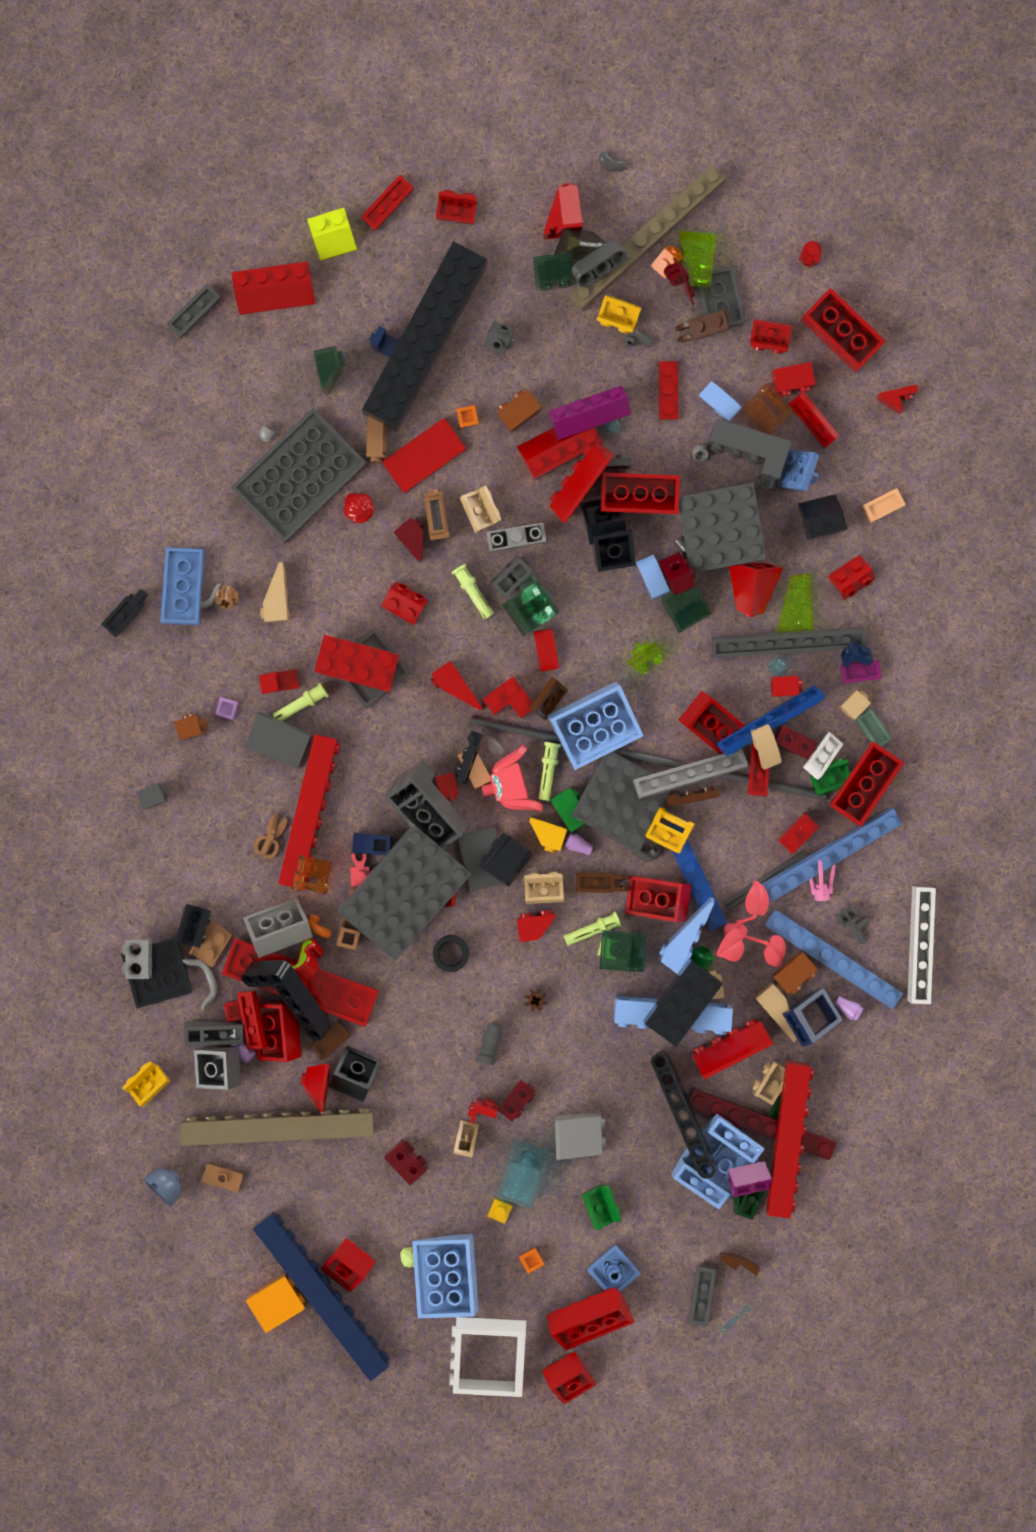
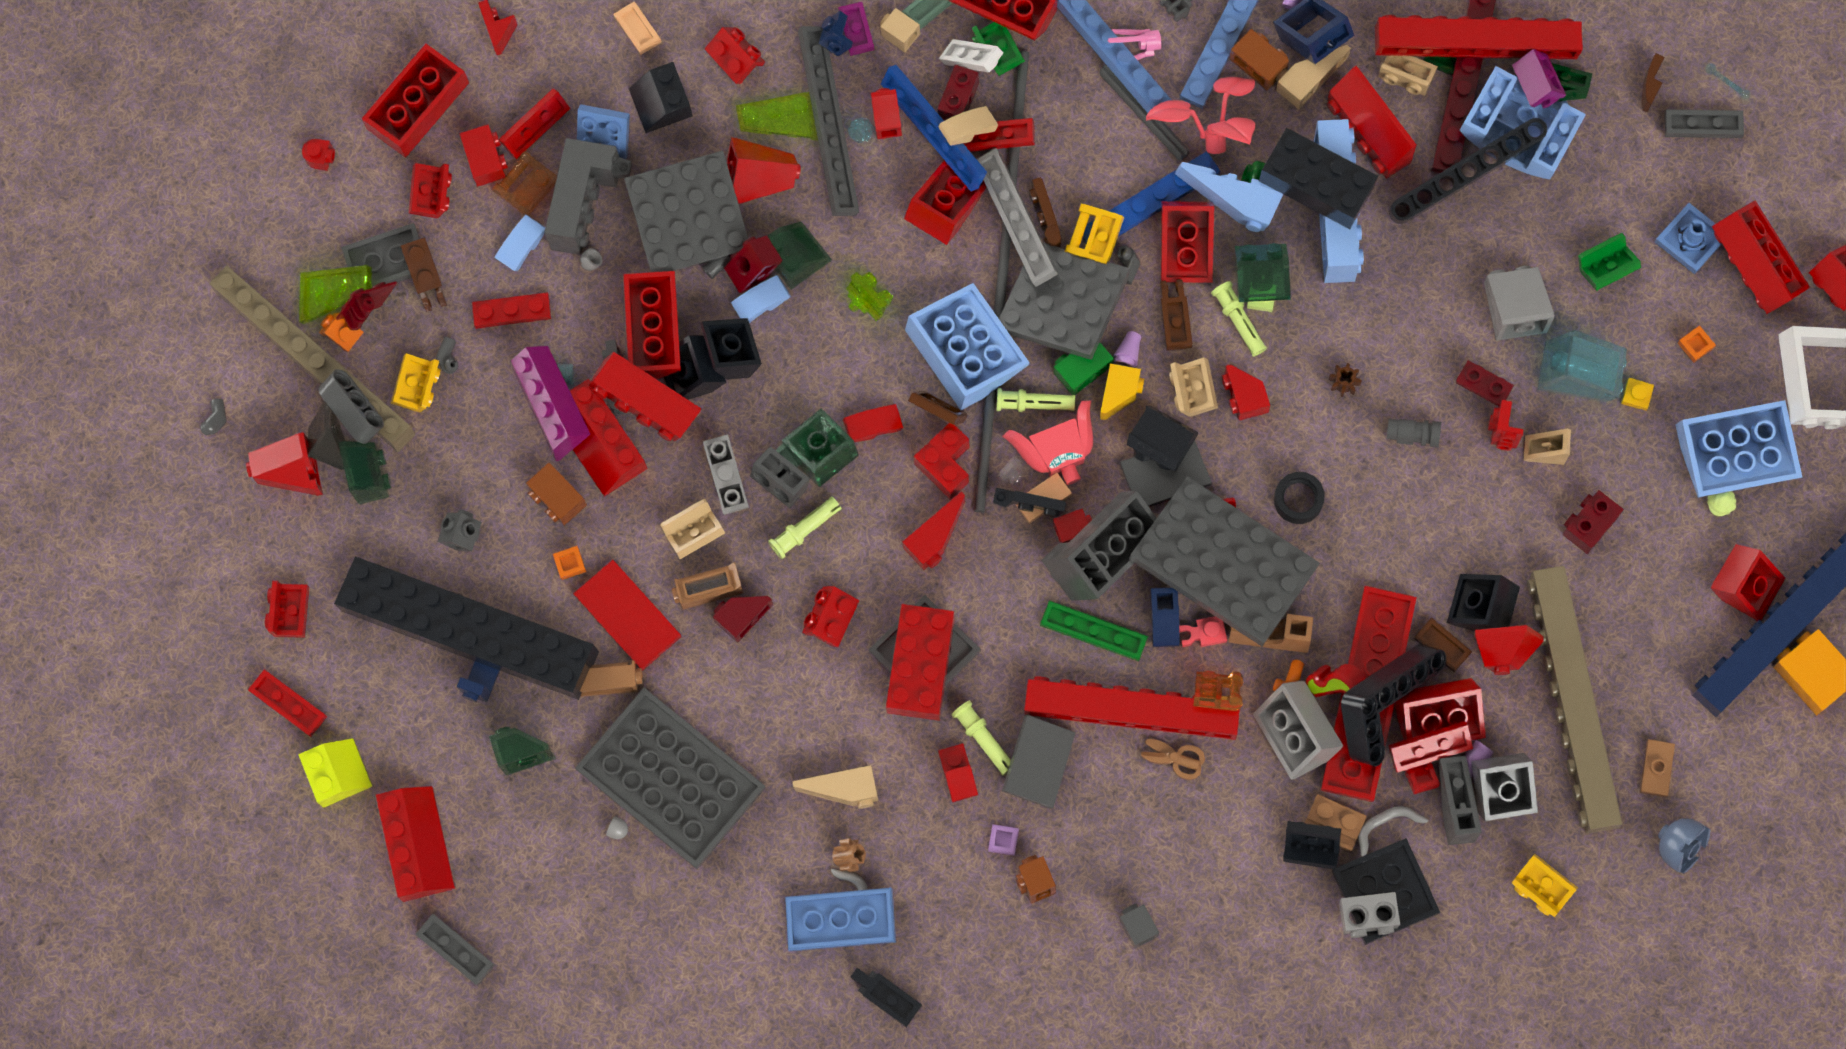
camera: 90 degrees left, 15 degrees down
(358, 507) = (707, 691): red hair -> none
(371, 792) = (1094, 631): none -> green tile
(797, 833) = (1076, 78): red brick -> none

